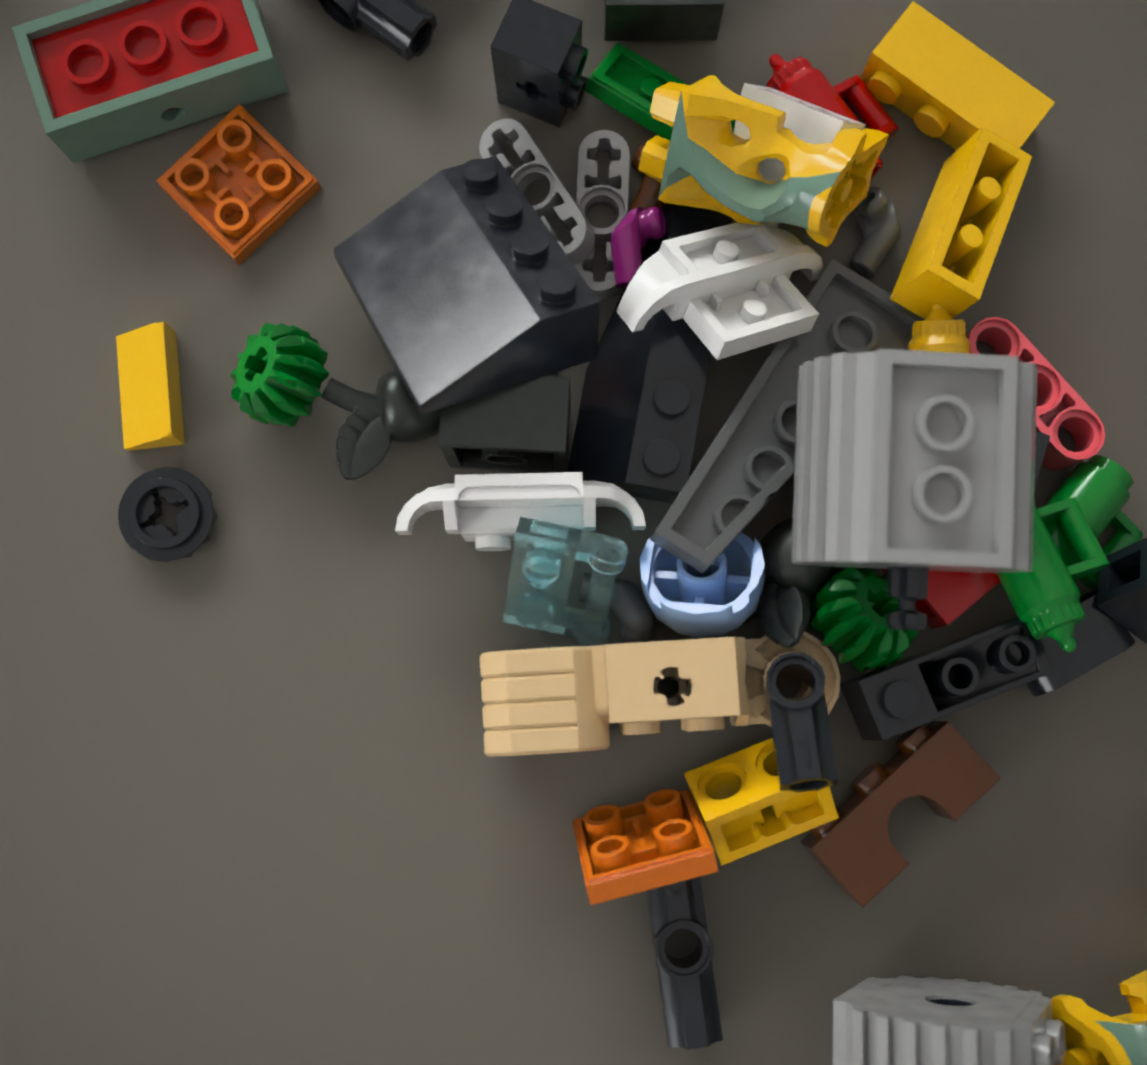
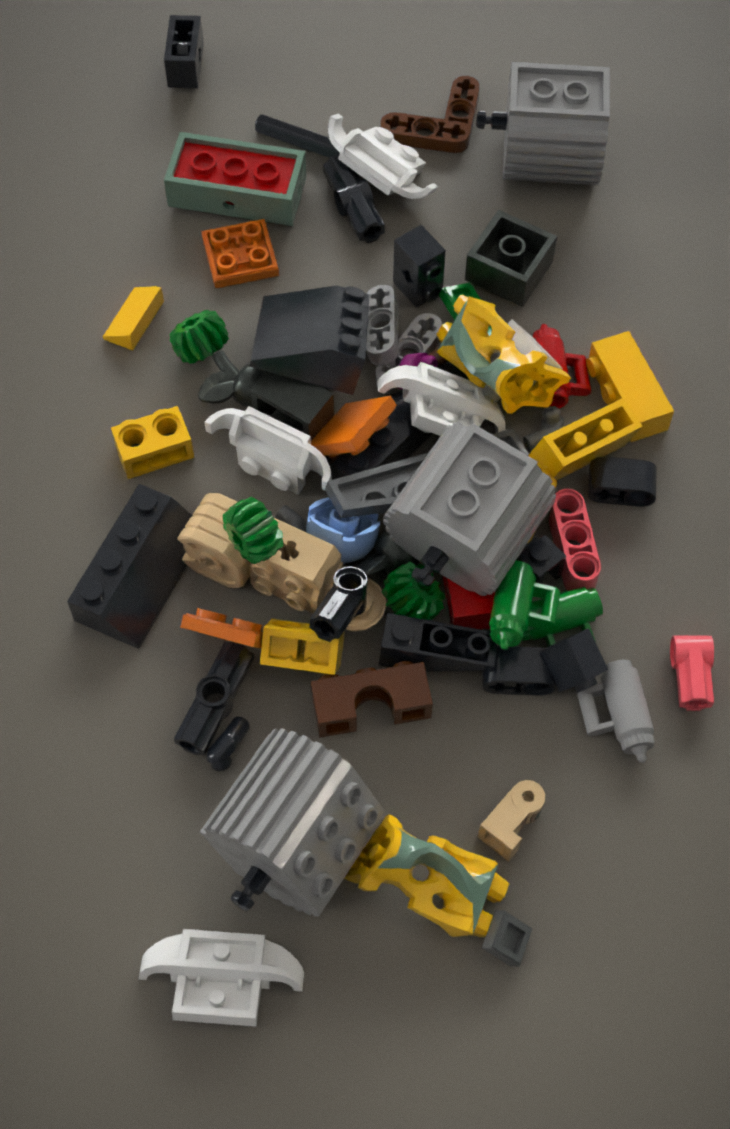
camera: 30 degrees right, 20 degrees down
(142, 506) = (91, 366): black gear -> none
(334, 599) = (154, 448): none -> yellow brick
(434, 811) = (133, 569): none -> black slope
(543, 576) = (267, 480): clear light blue plate -> none
(619, 707) = (253, 530): none -> green gear
(624, 409) = (353, 426): none -> orange tile
(742, 1002) = (227, 742): none -> black arm
(1039, 254) = (622, 481): none -> black beam

